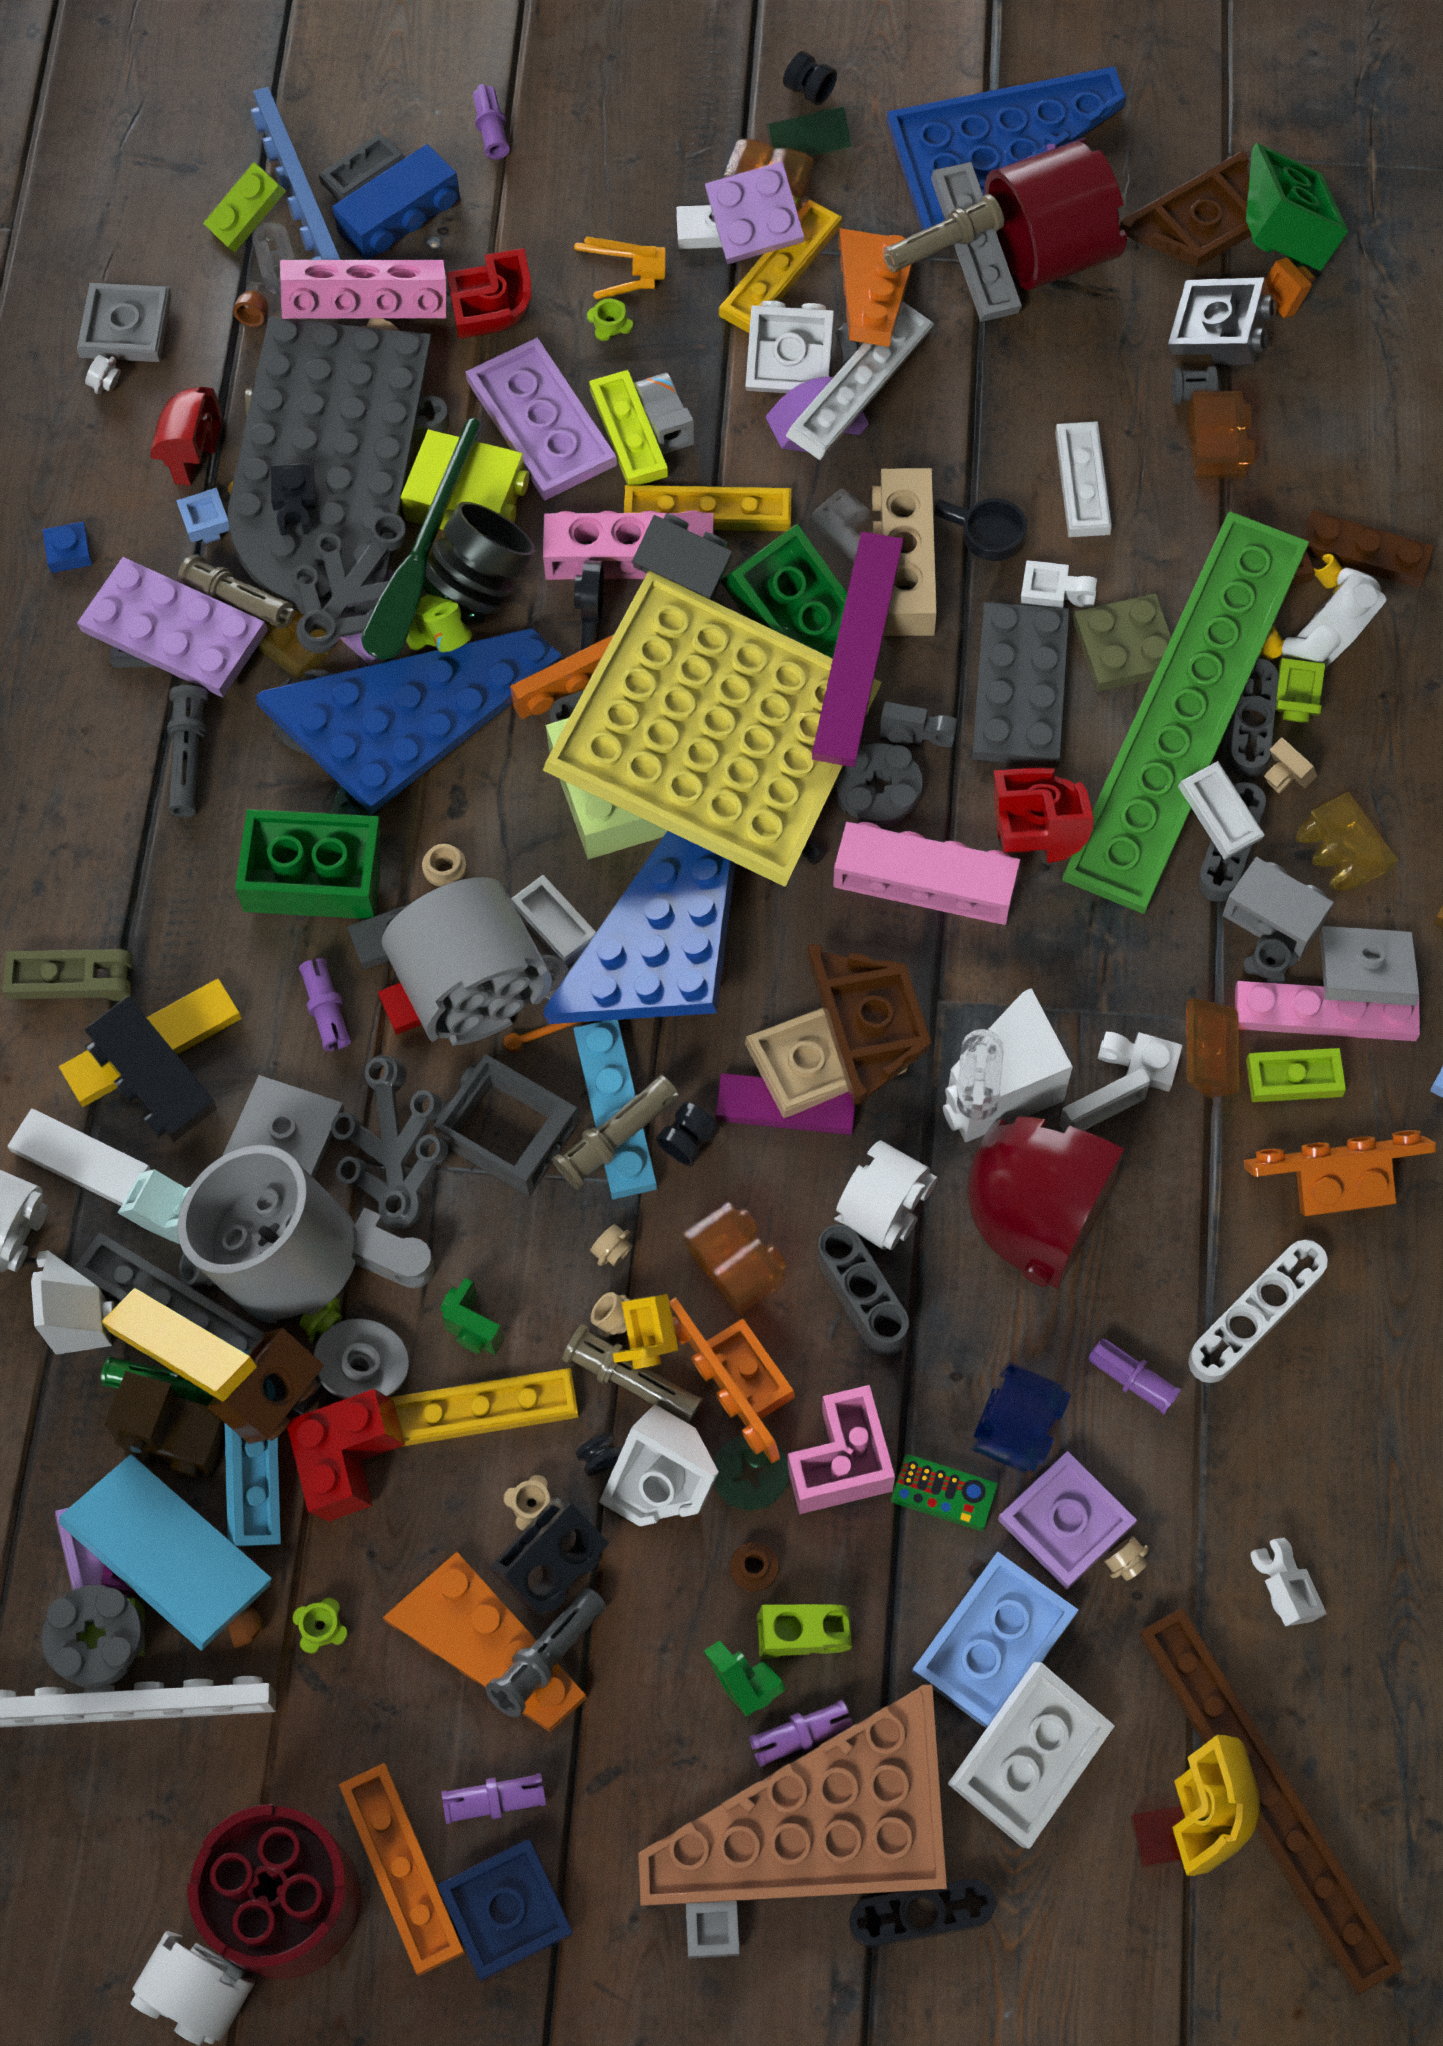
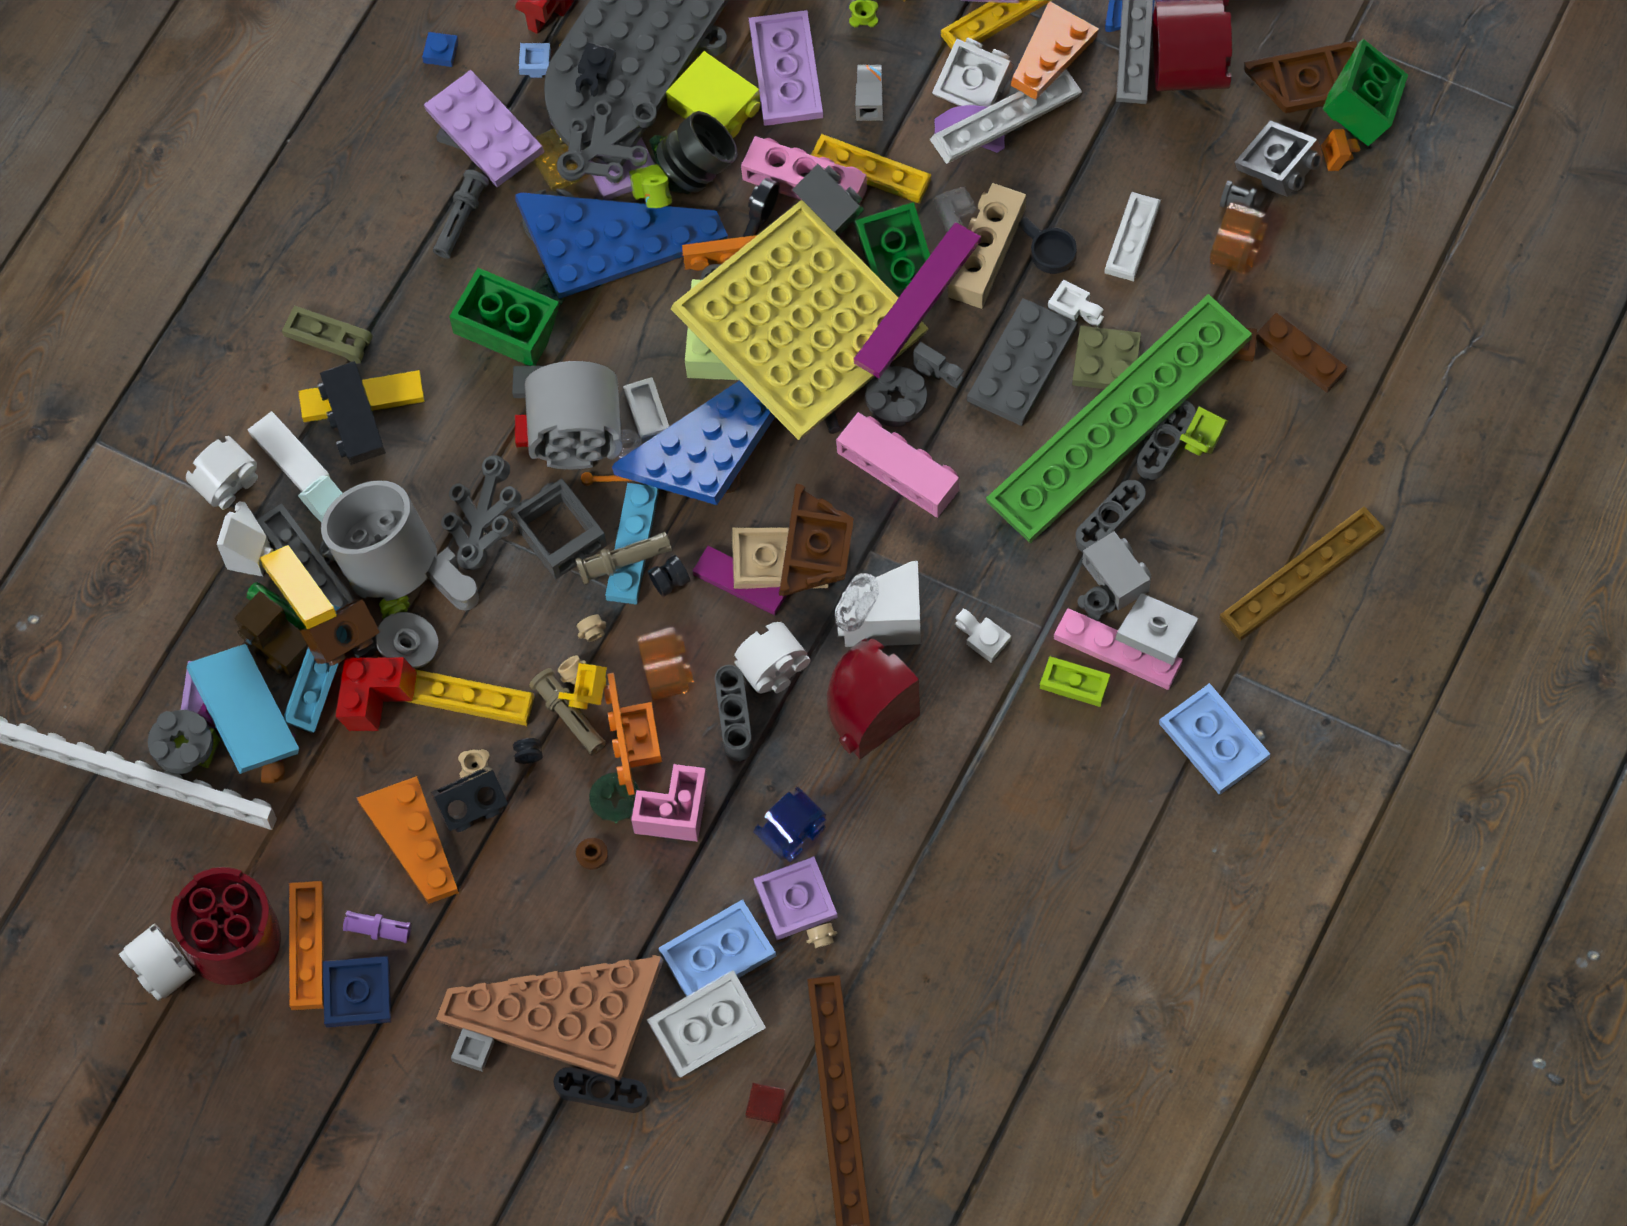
camera: 25 degrees right, 0 degrees up
(223, 586) = (527, 113): dark tan pin -> none
(286, 1120) = (424, 479): light grey plate -> none
(307, 1618) = (315, 780): lime plate -> none
(325, 1004) = (478, 411): medium lavender pin -> none
(398, 603) = (629, 165): dark green piece -> none
(444, 854) = (589, 341): tan plate -> none
(471, 1329) = (482, 646): green bracket -> none
(533, 1666) = (431, 857): dark grey pin -> none
(628, 428) = (840, 95): neon yellow plate -> none
(660, 1471) = (557, 772): white slope -> none
(744, 1685) = (553, 920): green bracket -> none
(800, 1733) = (572, 959): medium lavender pin -> none
(803, 1630) = (604, 900): lime leg -> none
(944, 1492) = (728, 854): tile -> none
(958, 228) = (1121, 31): dark tan pin -> none
(1041, 812) = (988, 451): red brick -> none
(1106, 1101) = (942, 653): white tile -> none
(1134, 1375) = (880, 828): medium lavender axle -> none
(1212, 1048) = (1028, 644): clear orange slope -> none
(1217, 1803) = (803, 1092): yellow brick -> none
(1221, 810) = (1107, 492): white tile -> none
(1254, 1307) = (976, 815): white beam -> none
(1288, 766) = (1170, 481): tan tile -> none
(1290, 1589) = (912, 991): white plate -> none
(1335, 621) = (1248, 393): white torso -> none
(1344, 1175) = (1072, 755): orange bracket -> none
(1348, 841) = (1189, 545): clear yellow plate -> none

